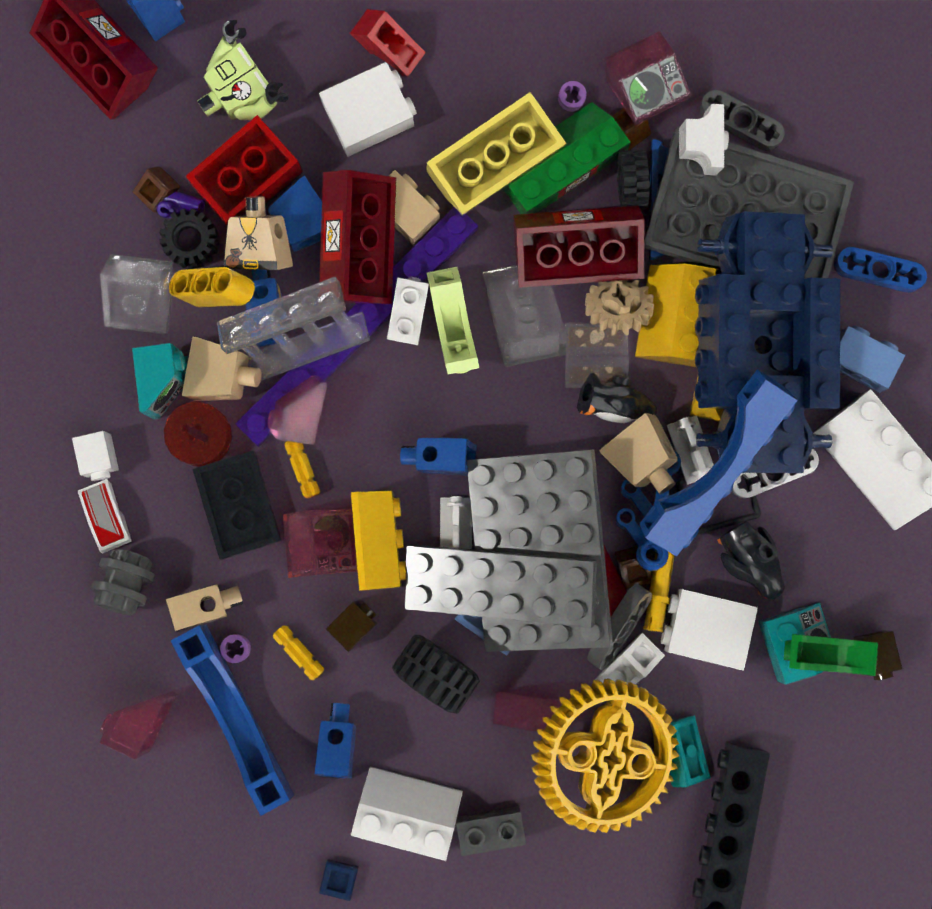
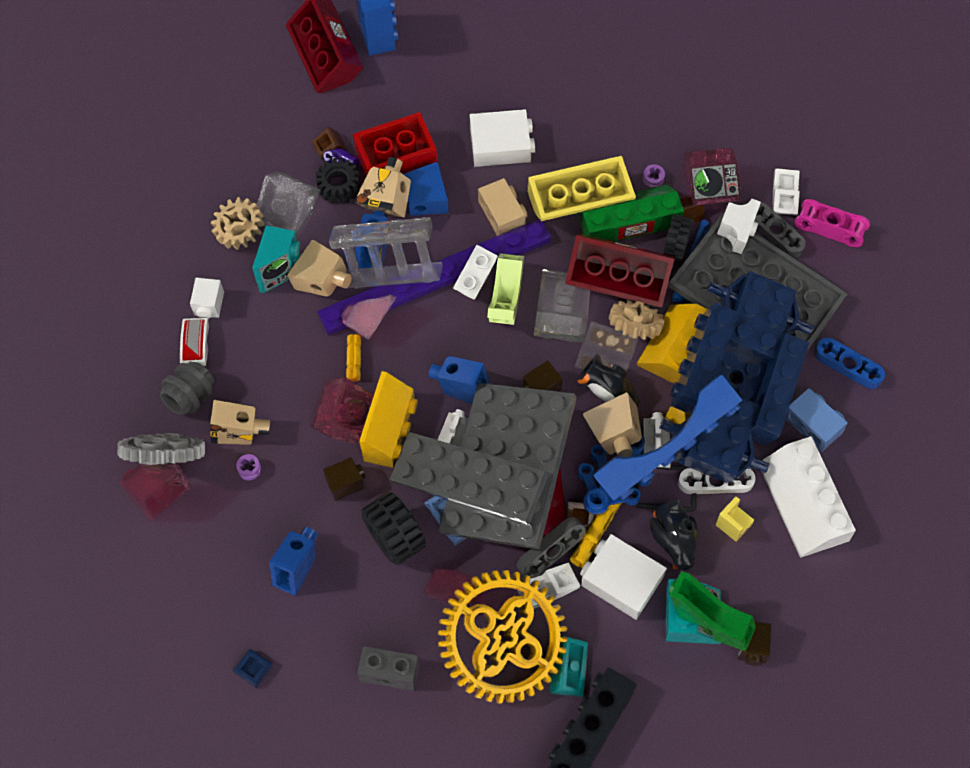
camera: 20 degrees right, 20 degrees down
(90, 328) = (237, 223): none -> tan gear
(128, 677) = (161, 448): none -> light grey gear
(183, 445) = (293, 297): clear red piece -> none
(211, 287) = (339, 209): yellow beam -> none
(237, 81) = (415, 90): yellowish green torso -> none
(237, 505) = (294, 366): black plate -> none
(249, 746) = (227, 529): blue arch -> none
(298, 652) = (294, 486): yellow axle -> none
(358, 234) = (460, 209): dark red slope -> none
(388, 41) = (530, 95): red arch -> none
(407, 813) = (327, 633): white slope -> none
(535, 425) = (543, 378): none -> dark brown brick
(737, 64) = (786, 191): none -> white slope
(810, 516) = (734, 520): none -> light yellow panel
(829, 89) = (843, 229): none -> dark pink piece

